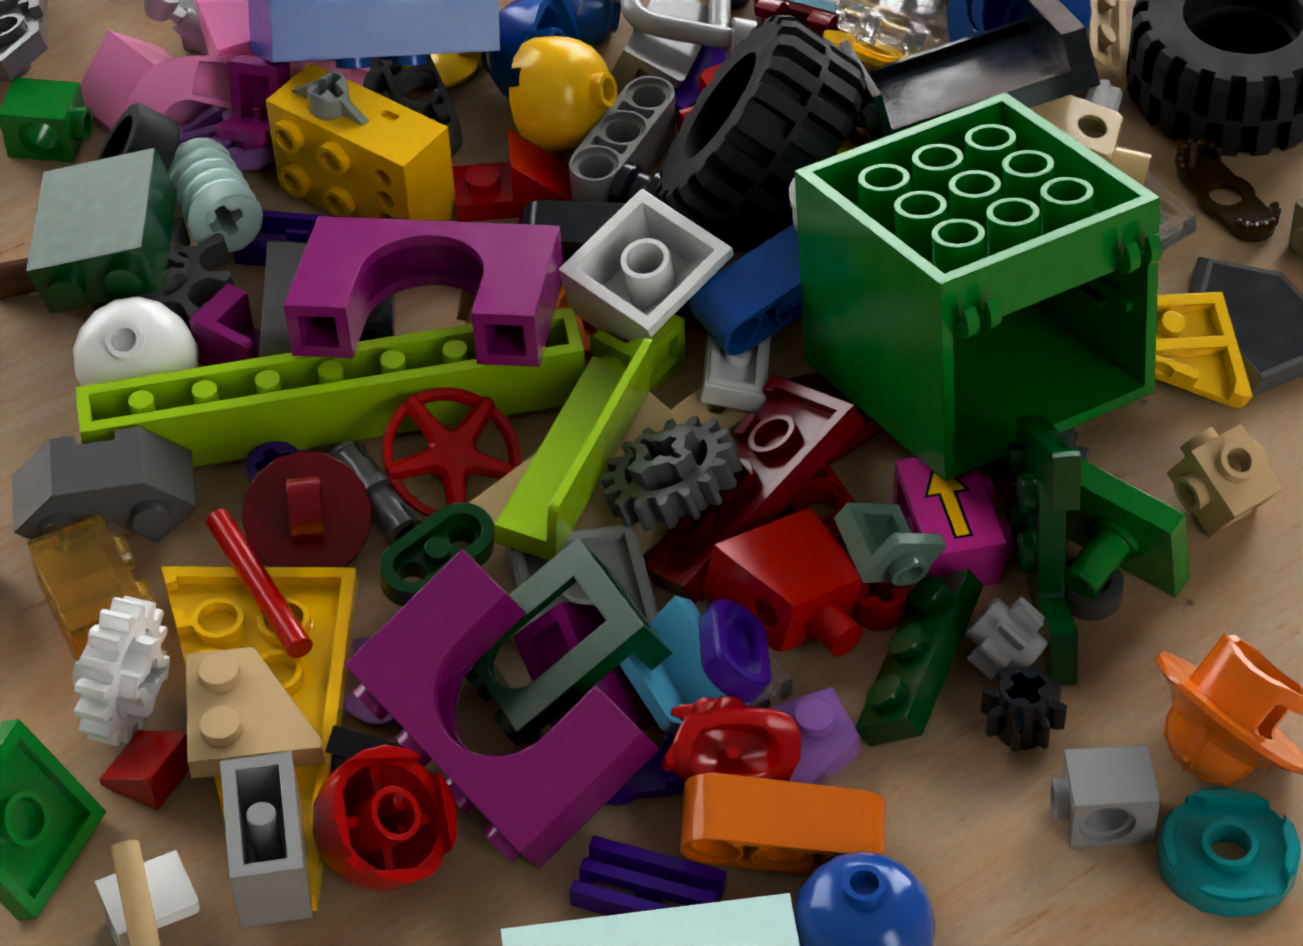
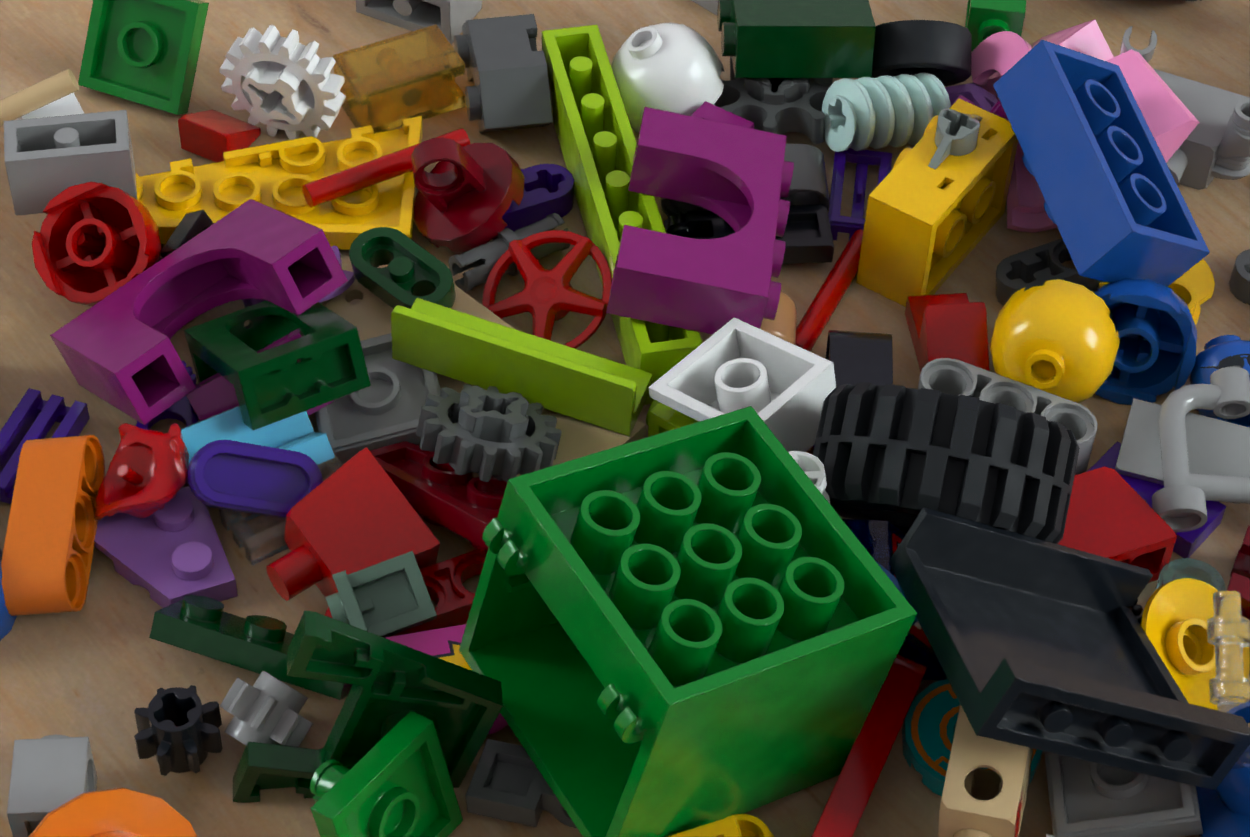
camera: 85 degrees right, 0 degrees up
(241, 712) = (239, 162): tan wing -> none

